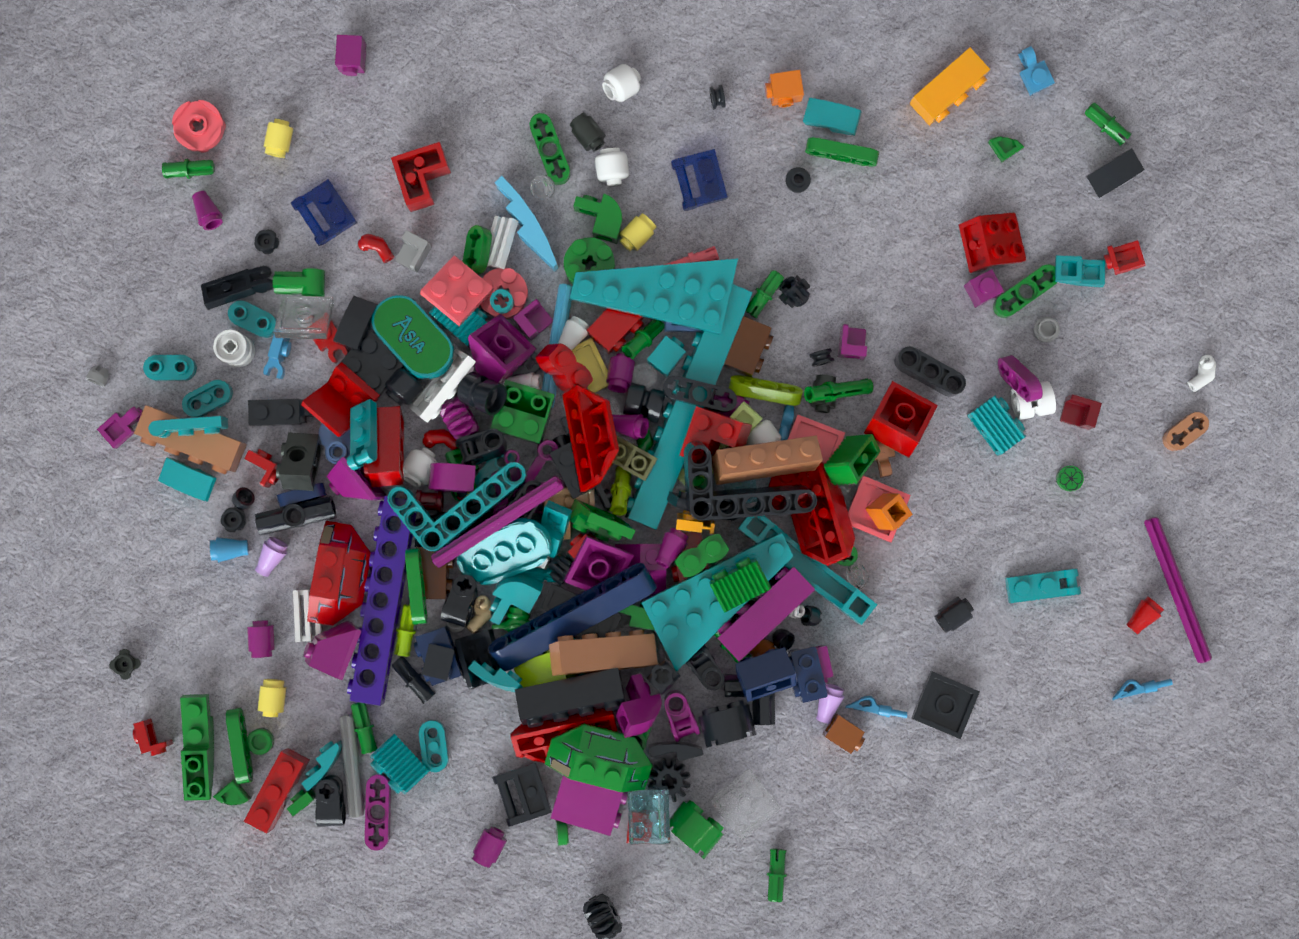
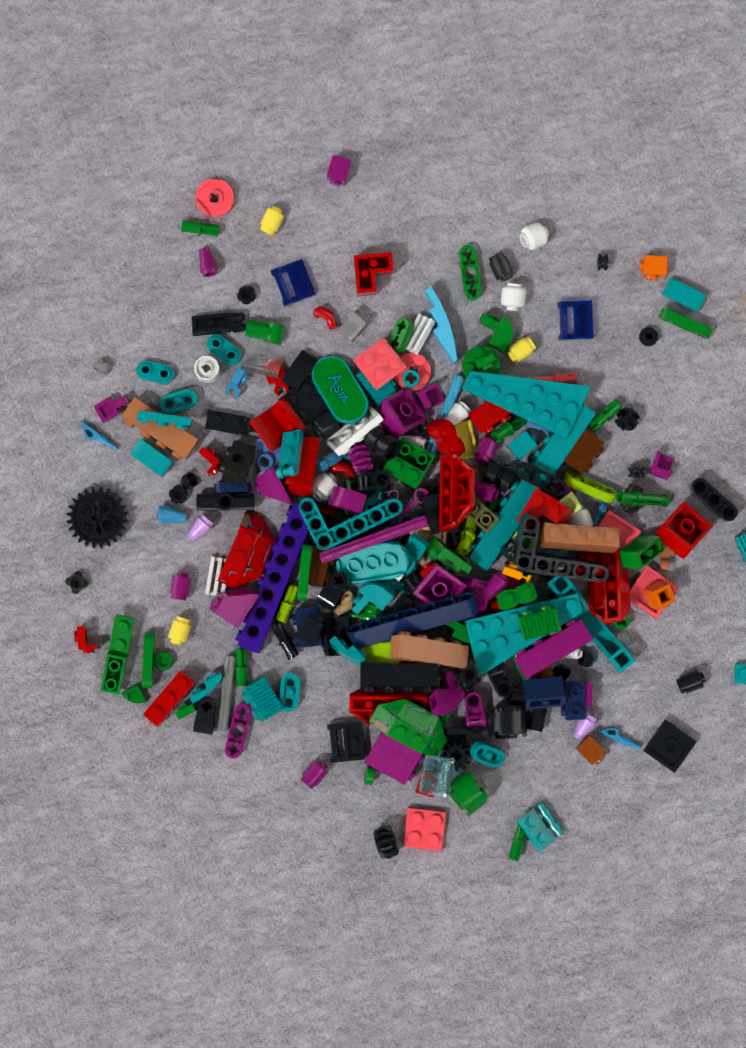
camera: 10 degrees right, 0 degrees up
(111, 582) = (80, 520): none -> black gear
(116, 468) = (96, 435): none -> dark azure hand
(420, 431) = (330, 460): none -> dark azure axle
(592, 257) = (485, 363): none -> green plate
(649, 886) = (424, 829): none -> coral plate
(704, 770) = (484, 754): none -> teal plate
(796, 855) = (536, 829): none -> teal plate

